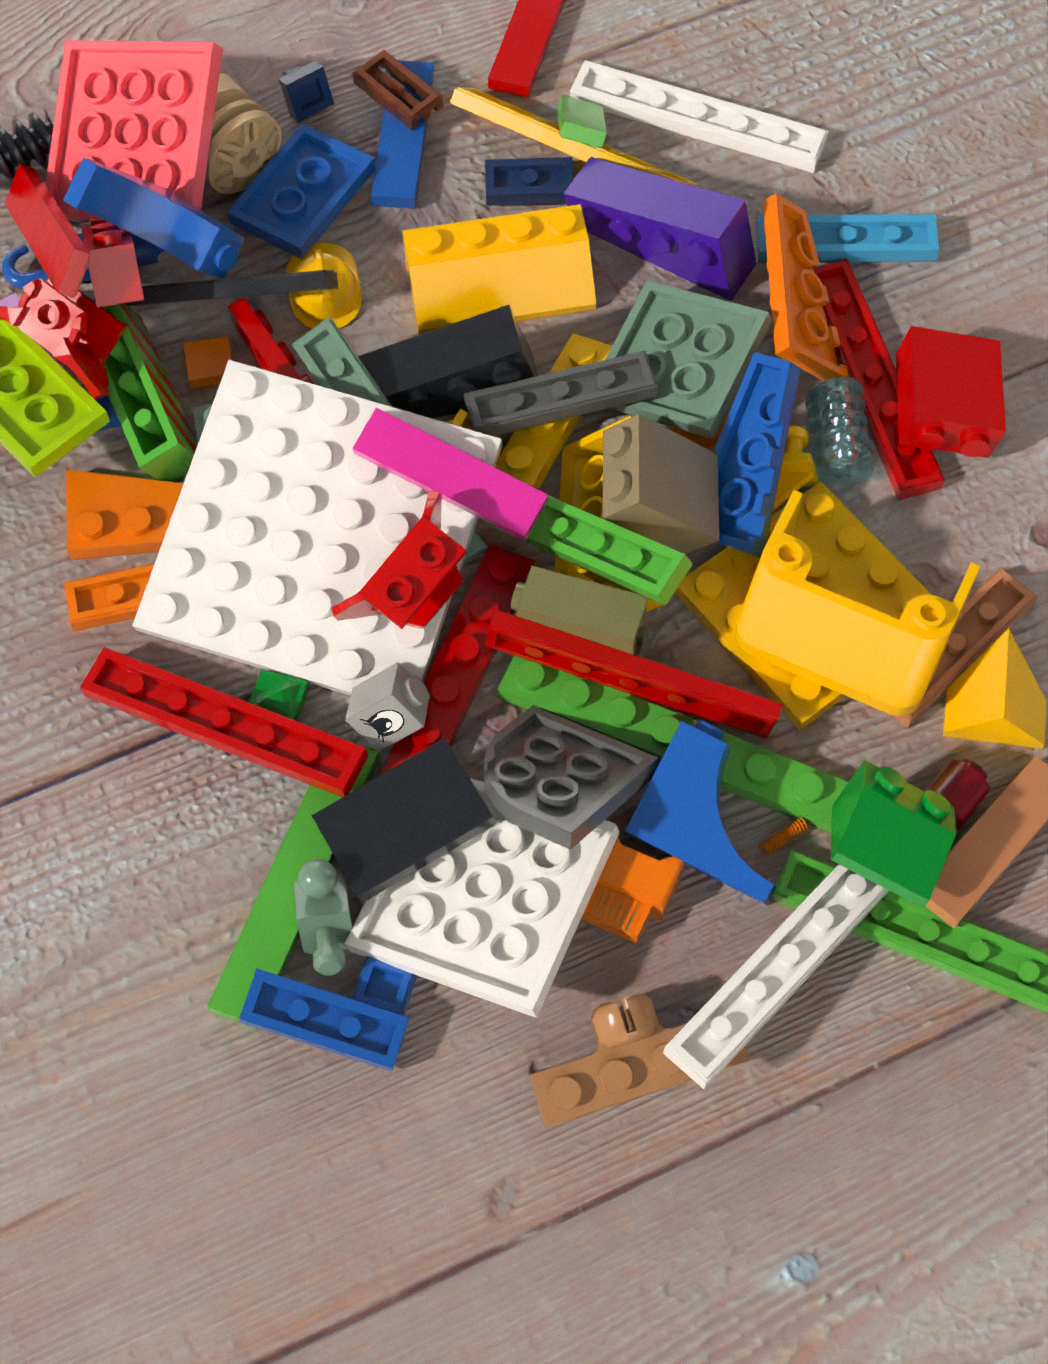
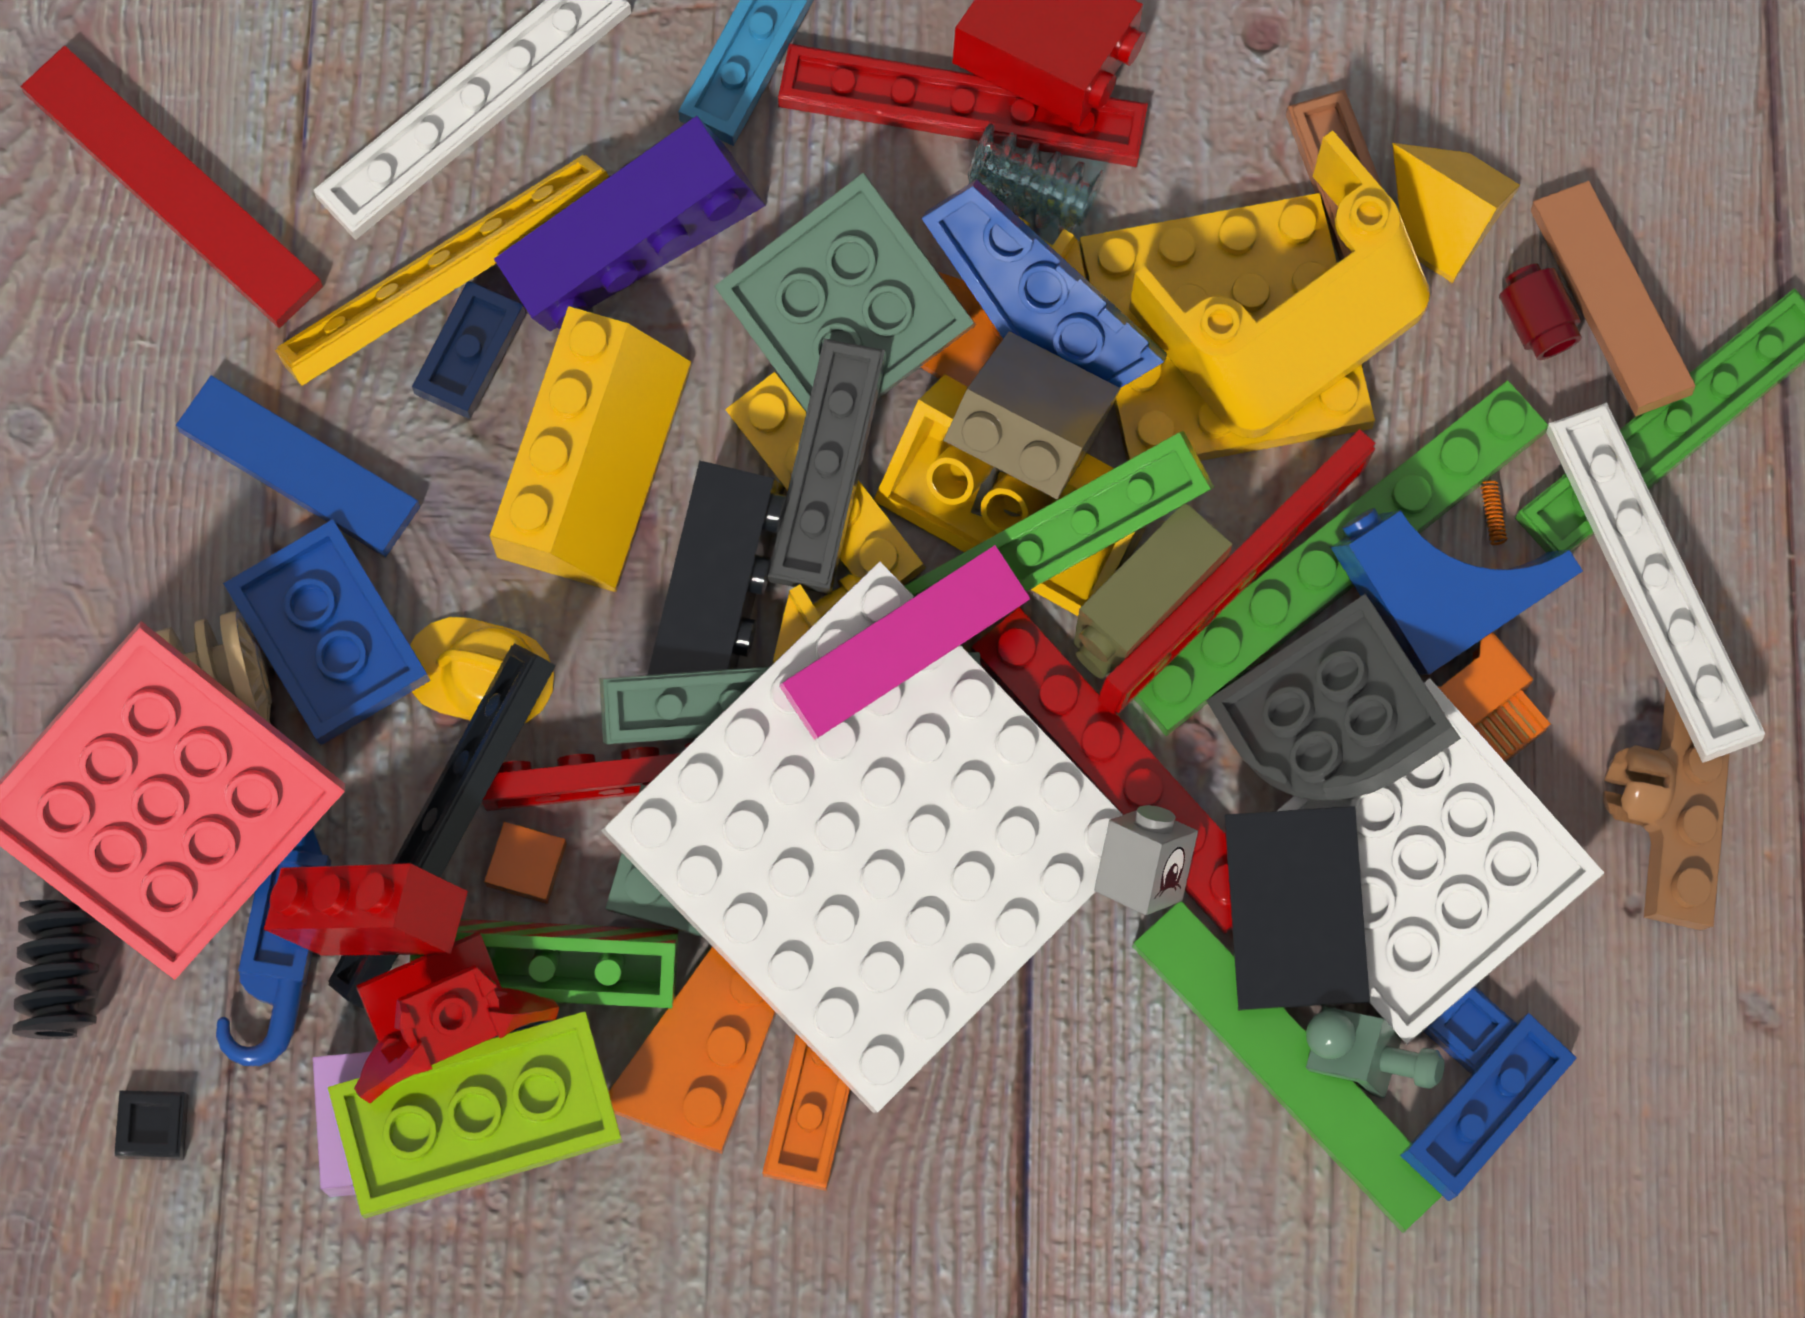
camera: 65 degrees left, 10 degrees up
(47, 231) = (272, 971): tile -> none
(155, 216) = (354, 812): blue arch -> none
(225, 722) = (1061, 1060): red plate -> none
(280, 694) = (1050, 986): green tile -> none
(306, 90) = (166, 555): dark blue tile -> none
(391, 93) = (243, 461): copper tile -> none
(413, 578) = (1029, 749): red piece -> none
(581, 121) = (424, 241): bright green tile -> none
(797, 292) = (825, 123): orange wing -> none
(892, 832) = (1579, 397): green slope -> none

